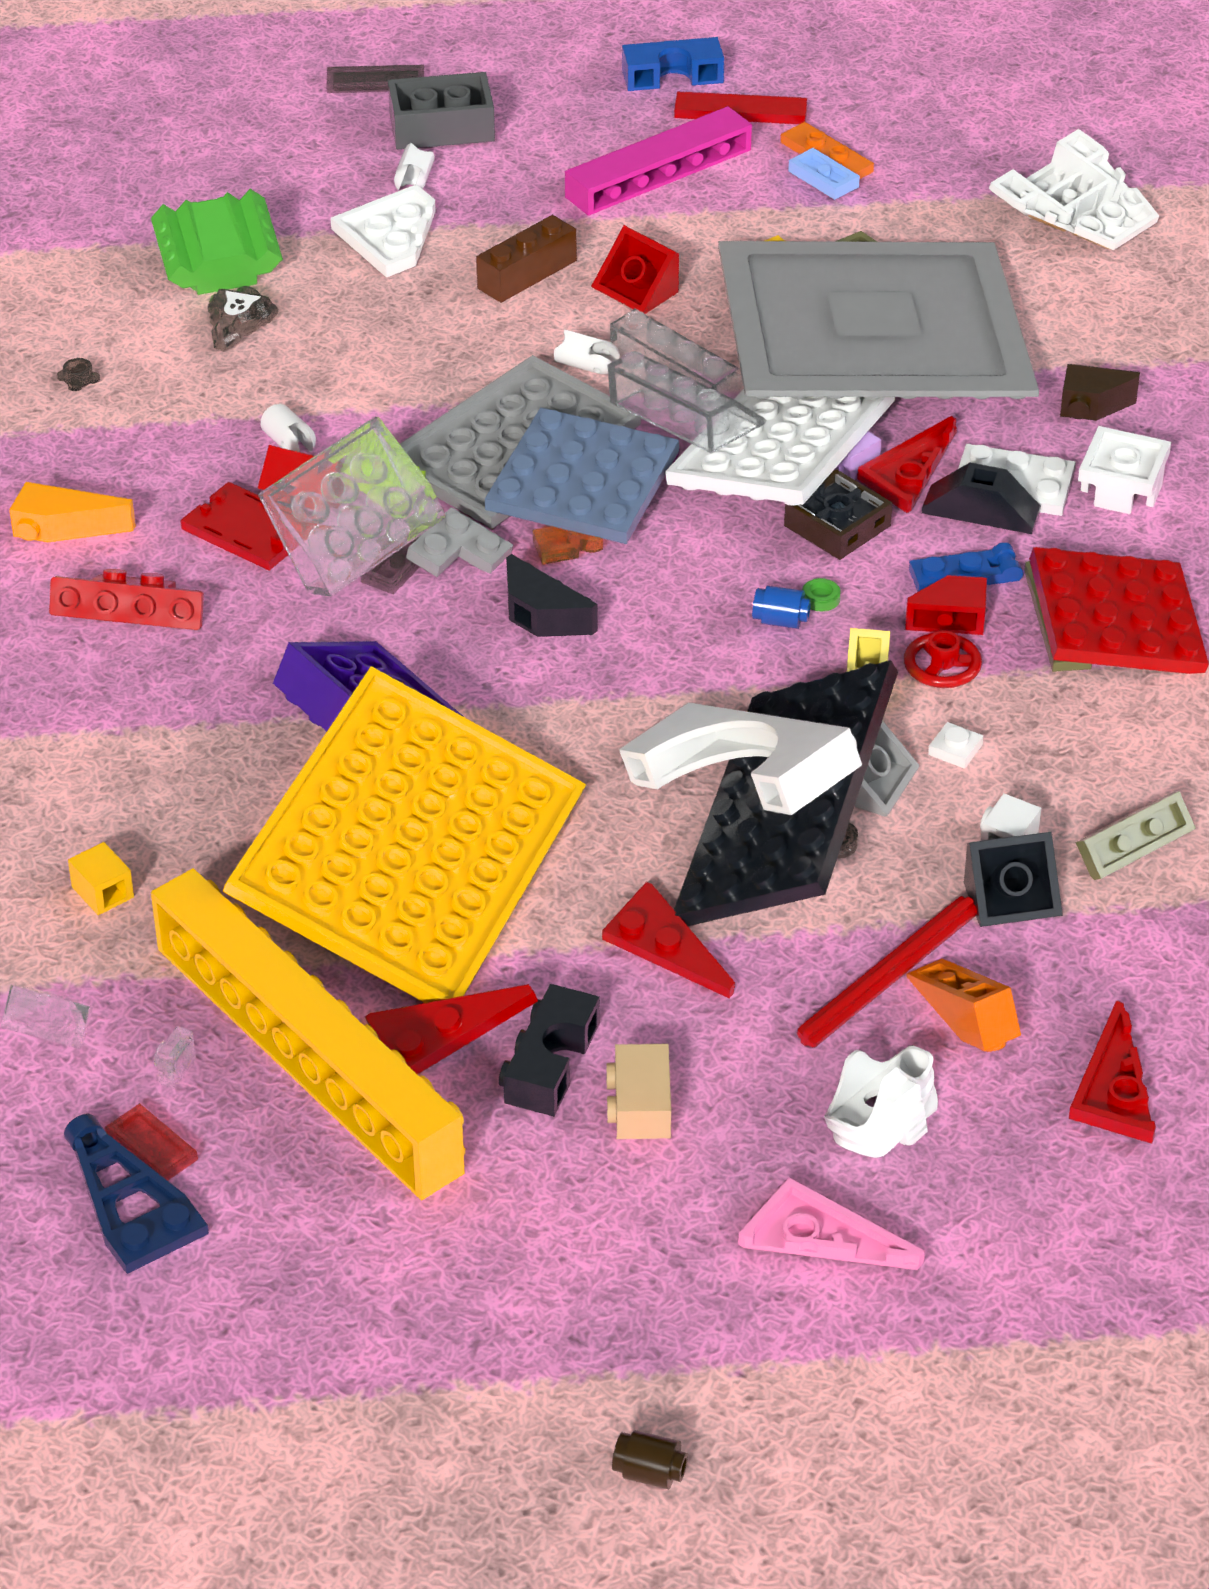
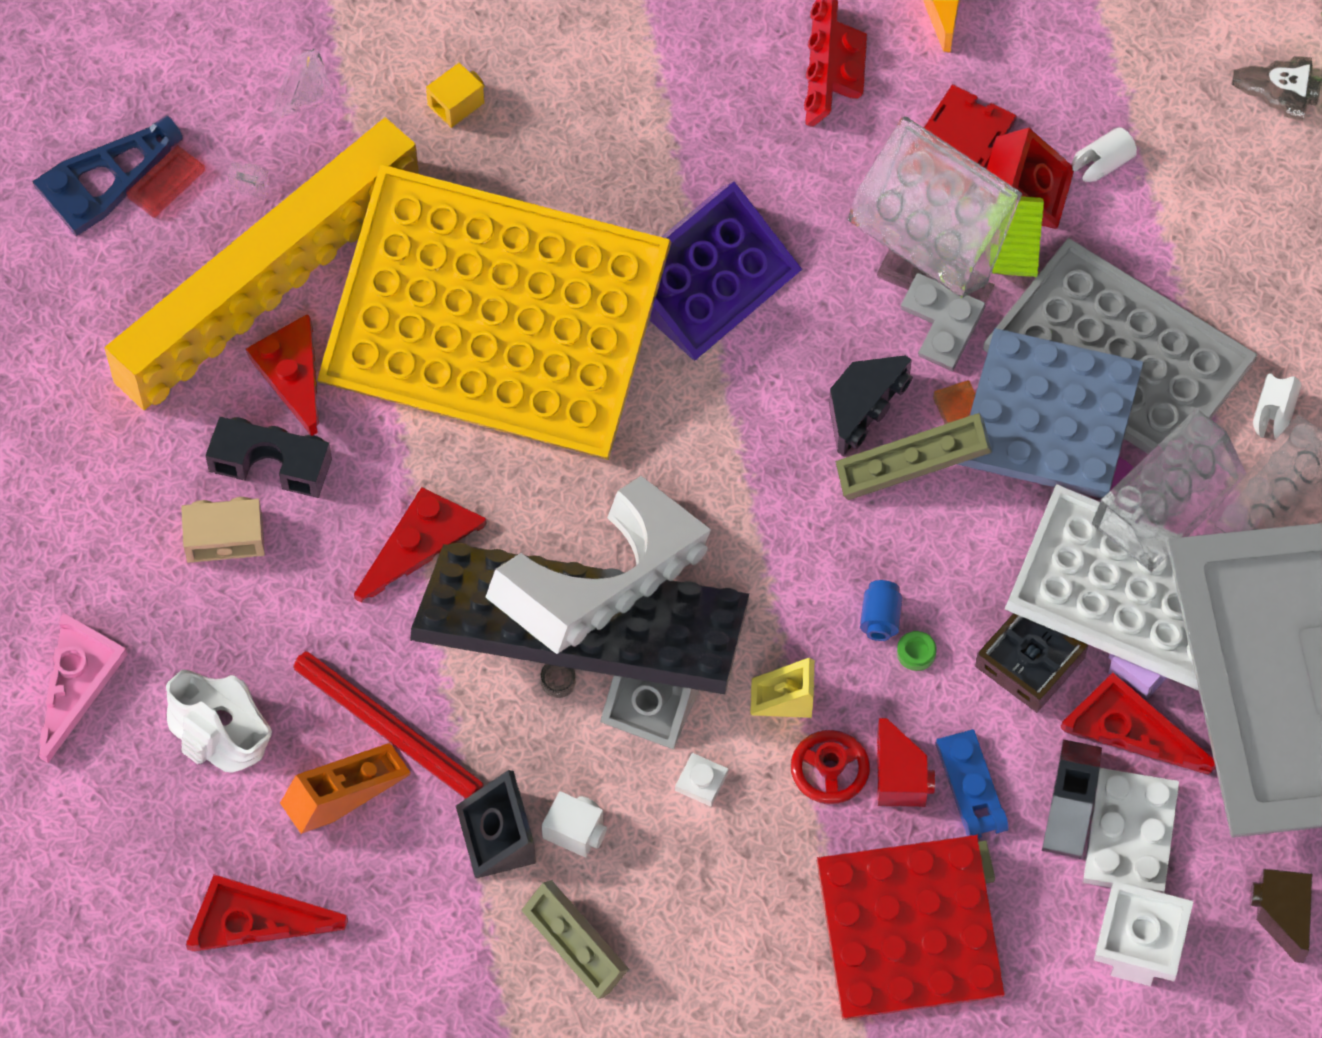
camera: 85 degrees right, 20 degrees up
(623, 560) = (913, 456): none -> olive plate

